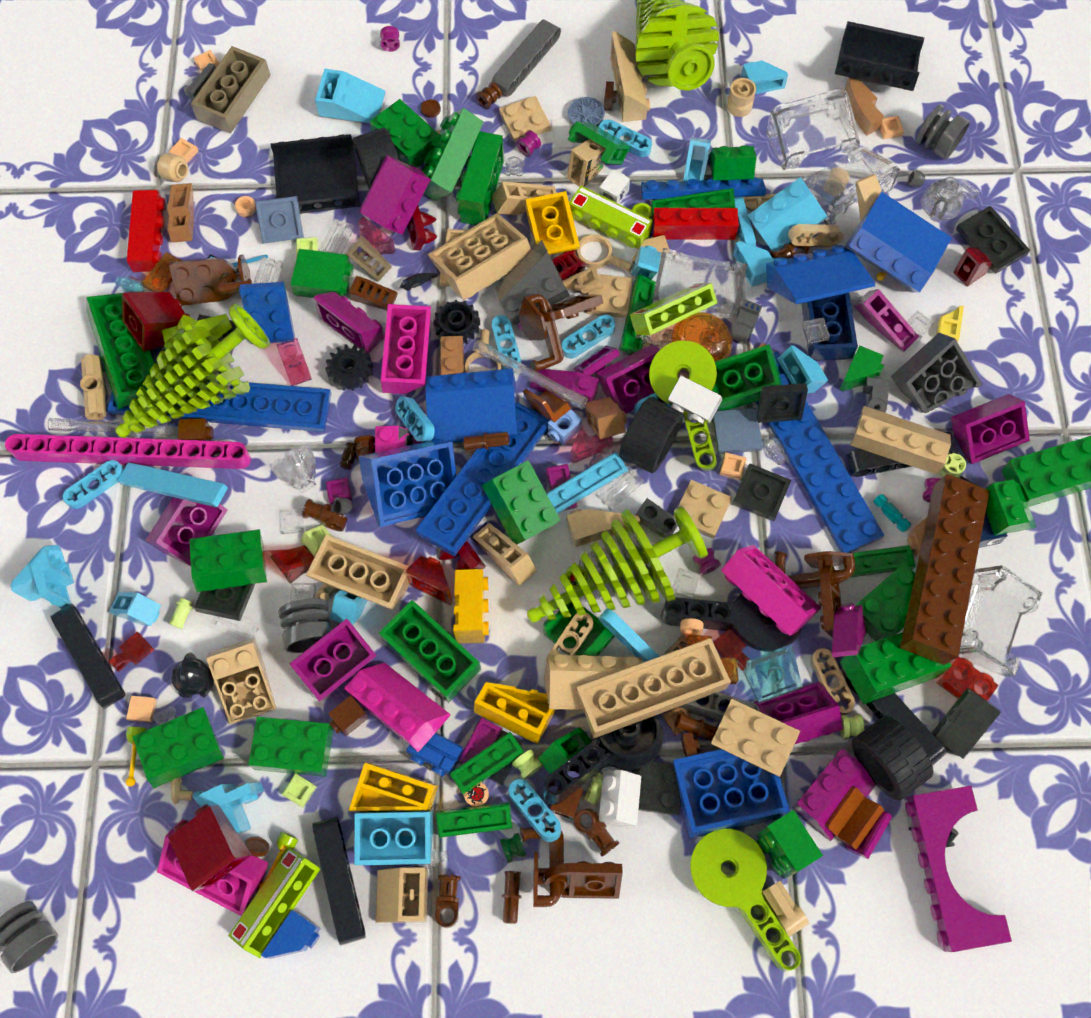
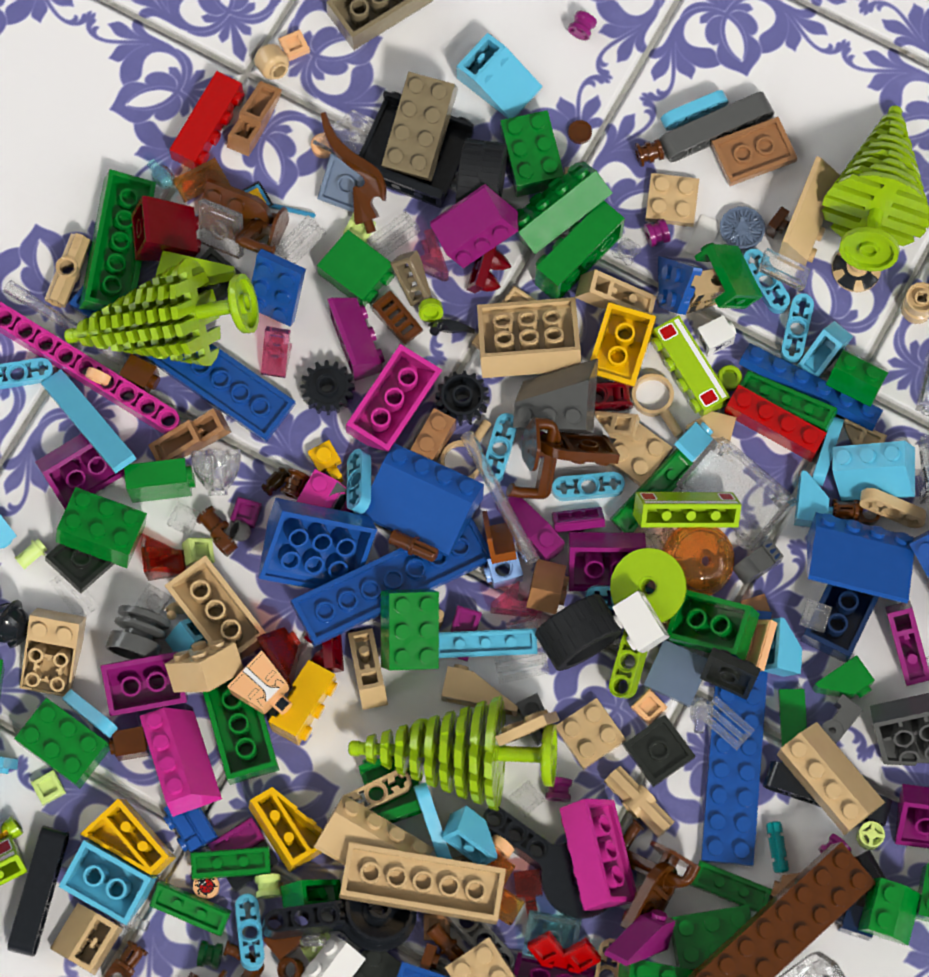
camera: 30 degrees right, 5 degrees up
(161, 447) = (98, 376): none -> light nougat tile
(199, 294) = (219, 228): none -> clear tile
(256, 463) = (190, 436): none -> medium nougat slope
(256, 499) = (159, 480): none -> green brick
(258, 188) = (350, 130): none -> clear wing
(300, 205) = (374, 181): none -> reddish brown piece
(301, 709) = (89, 713): none -> medium azure beam
(311, 150) = (419, 126): none -> dark tan brick
(375, 616) = (204, 666): none -> tan brick
(378, 417) = (326, 460): none -> yellow plate
(395, 274) = (430, 310): none -> lime tile
(431, 607) = (261, 686): none -> light nougat torso
(501, 55) = (694, 110): none -> medium azure beam
(562, 60) = (754, 151): none -> medium nougat plate
(566, 163) = (675, 284): none -> blue wing
(592, 786) = (313, 941): none -> clear piece
(634, 122) = (784, 269): none -> clear tile
(665, 512) = (521, 729): none -> tan plate
(665, 631) = (470, 836): none -> medium azure slope
(670, 150) = (807, 313): none -> medium azure beam
(678, 106) = (851, 277): none -> dish
(771, 536) = (639, 801): none -> tan piece
(787, 368) = (761, 643): none -> light nougat tile
(797, 446) = (719, 729): none -> clear tile
(801, 680) = (574, 958): none -> red tile
(839, 416) = (791, 713): none -> green tile

